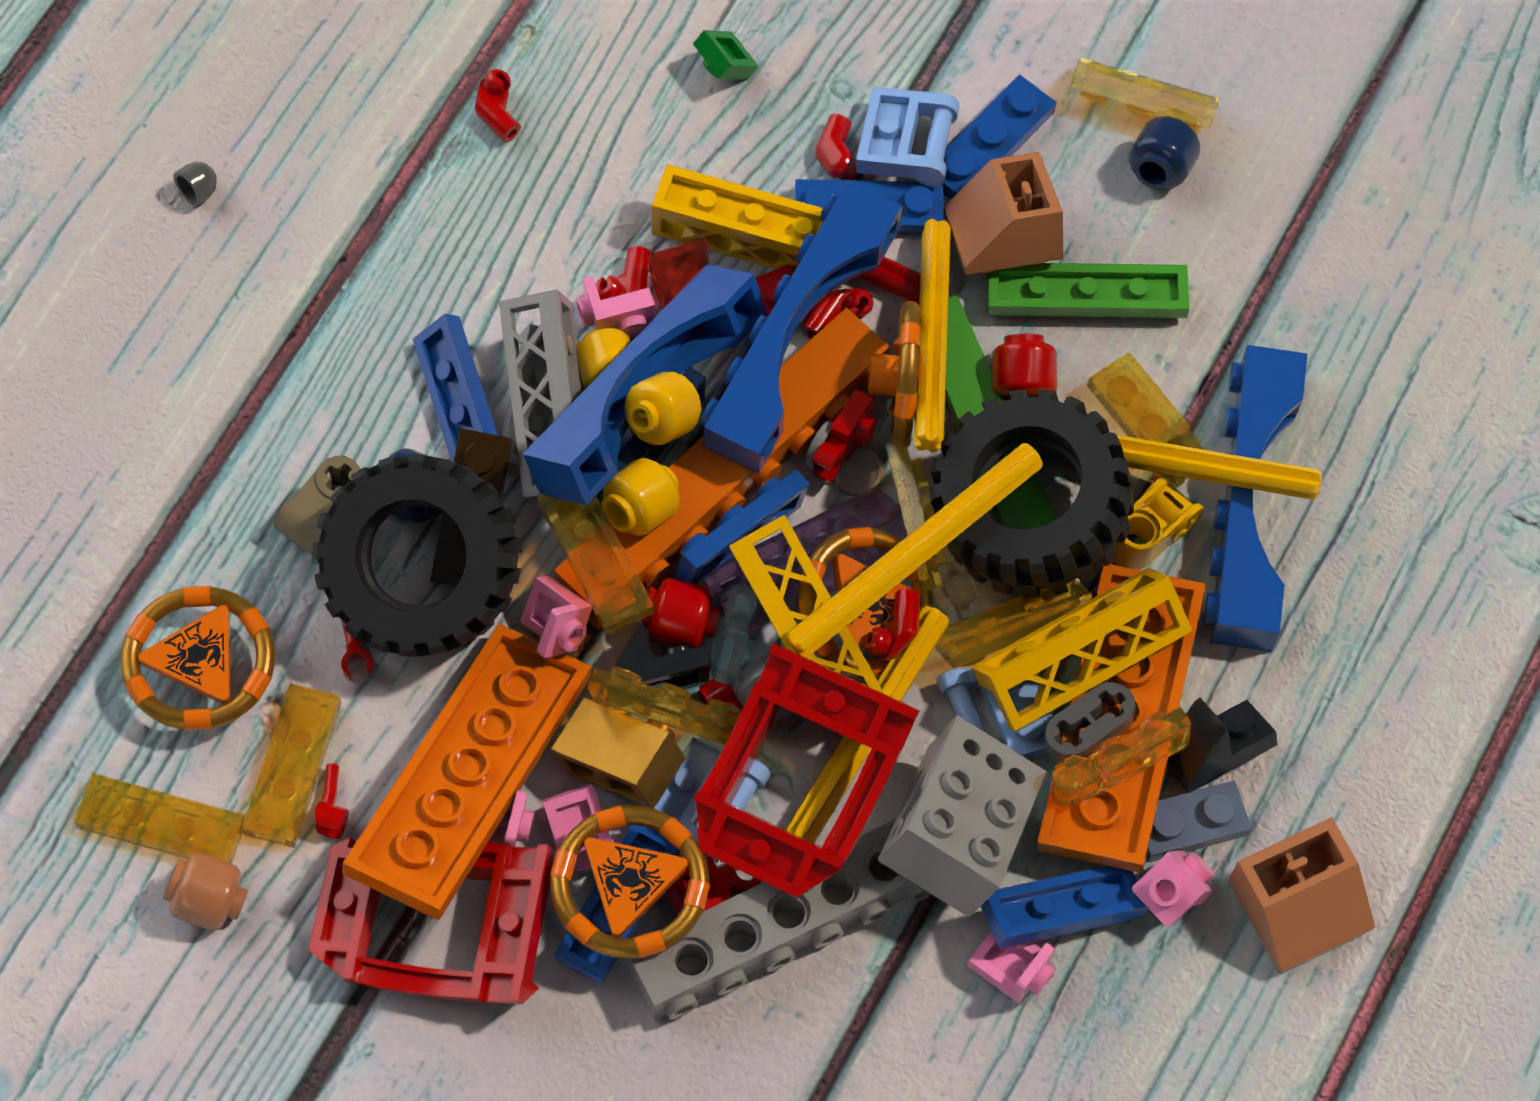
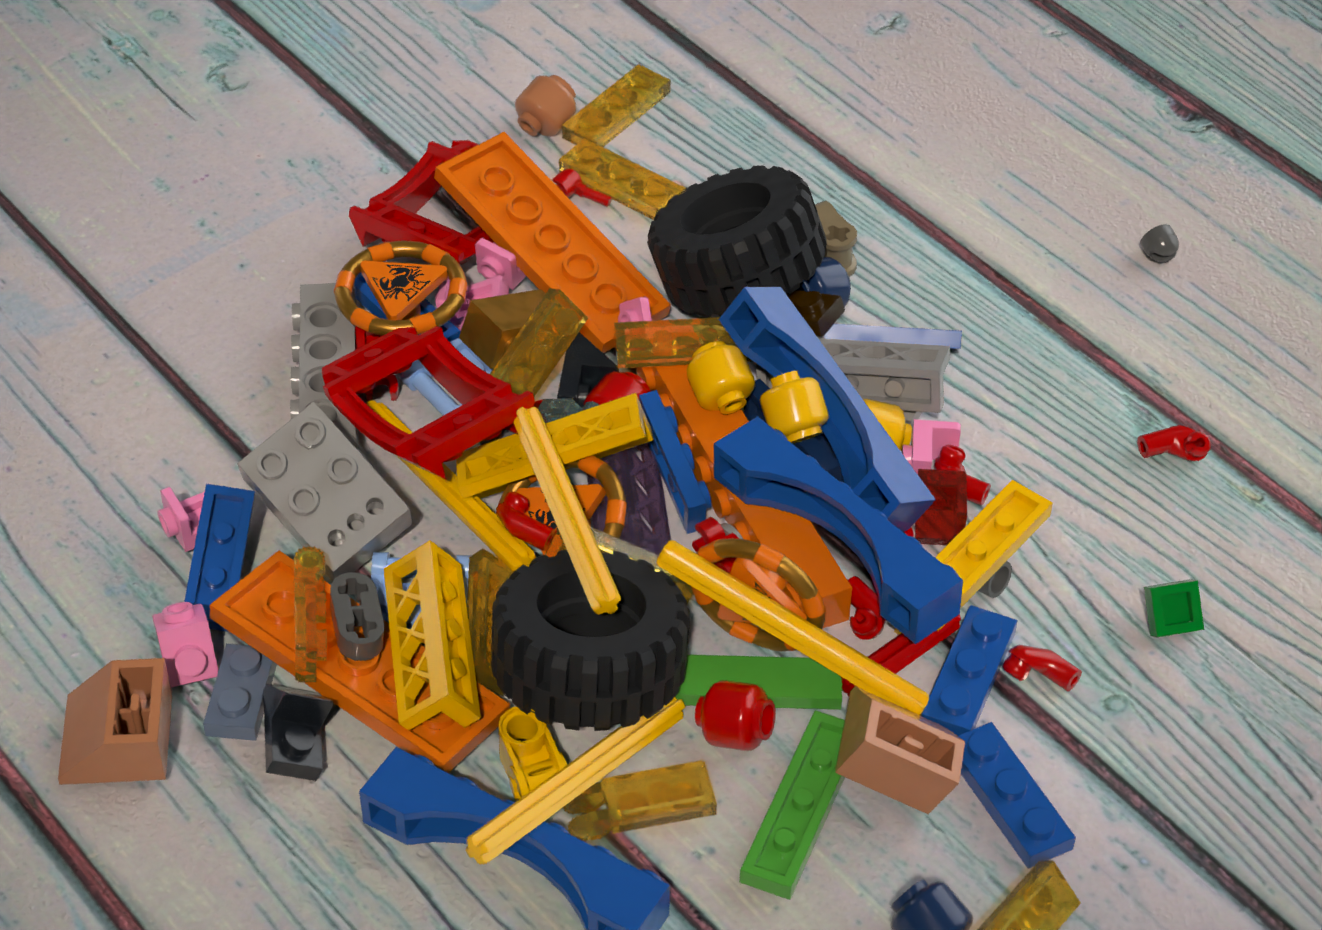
camera: 115 degrees right, 20 degrees down
(197, 657) = (726, 136): piece -> none
(891, 132) = (1040, 703): light blue plate -> none

